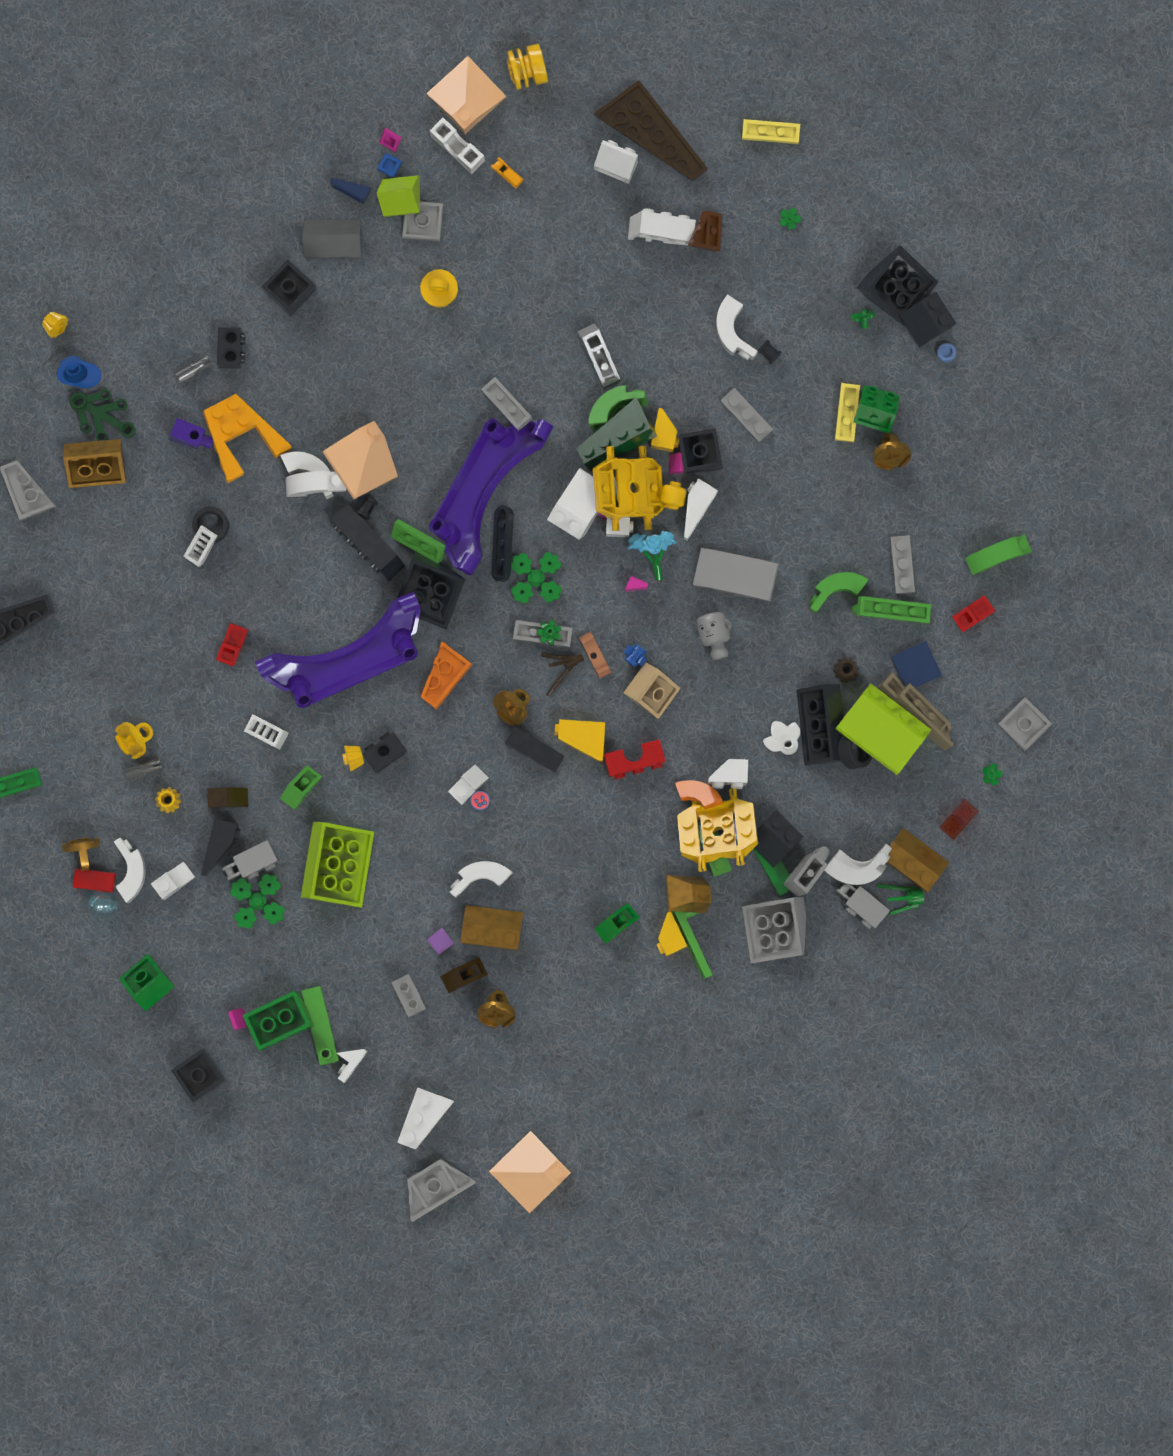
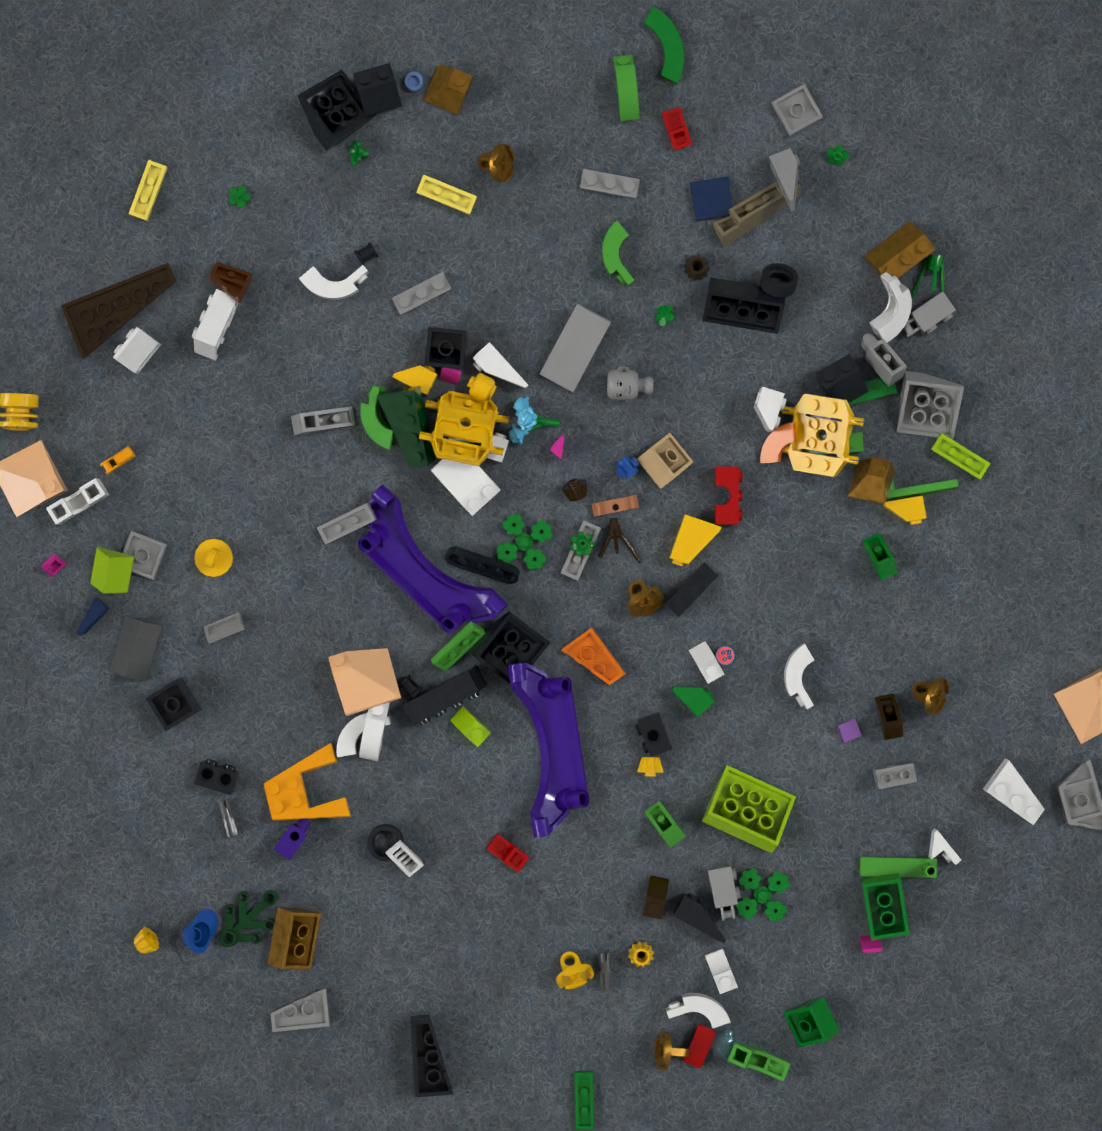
camera: 75 degrees left, 5 degrees up
(96, 940) = (756, 1058): none -> bright green arch
(198, 1075) = (915, 996): black brick -> none
(282, 735) = (606, 847): white slope -> none
(344, 575) = (470, 726): none -> lime slope
(374, 315) = (224, 628): none -> light grey plate
(389, 165) = (78, 572): blue tile -> none
(430, 782) = (695, 698): none -> green slope
(491, 927) = (851, 677): pearl gold slope -> none
(599, 612) = (575, 489): none -> dark brown piece
(736, 974) = (960, 456): none -> lime plate
(781, 735) = (742, 346): white plate -> none
(791, 651) = (665, 315): none -> green plant
(877, 408) = (451, 164): green bracket -> none
(883, 729) = (767, 247): lime slope -> none
(892, 609) = (652, 206): bright green piece -> none
(948, 387) = (448, 89): none -> pearl gold slope
(959, 730) = (785, 169): none -> light grey slope
(959, 819) = (871, 200): clear red slope -> none
(1053, 586) = (671, 42): none -> green tile

